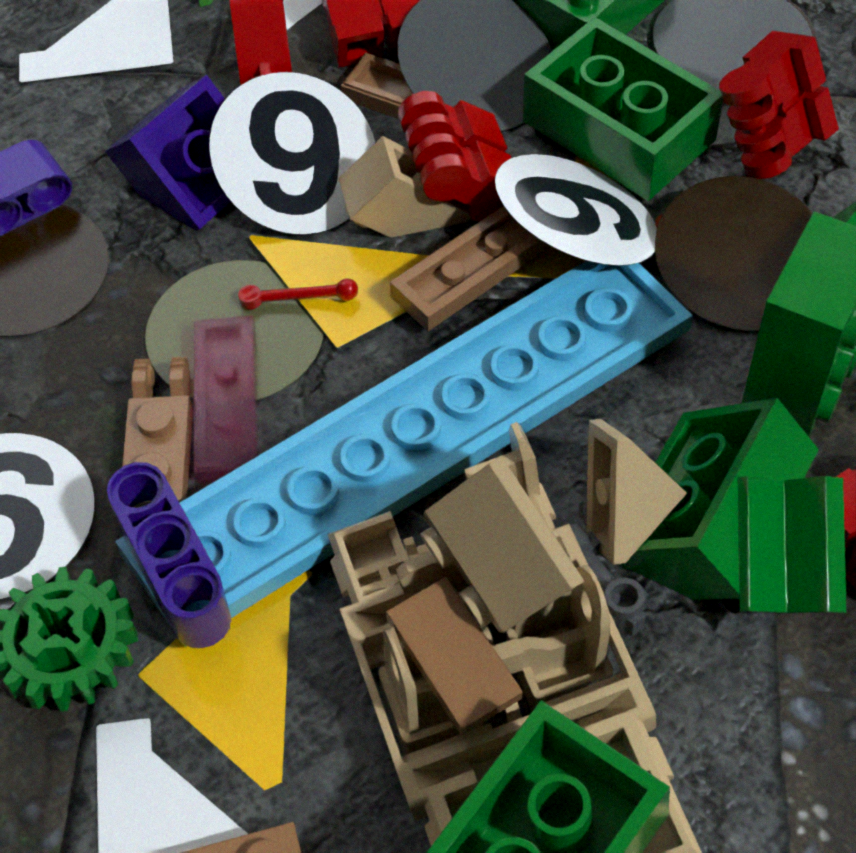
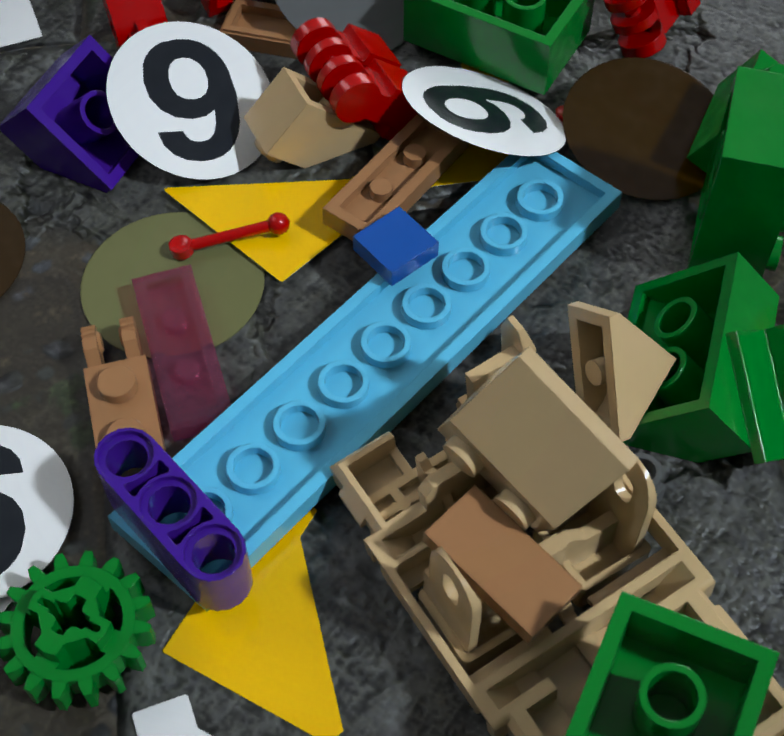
camera: 15 degrees left, 0 degrees up
(448, 332) = (395, 245): none -> blue tile

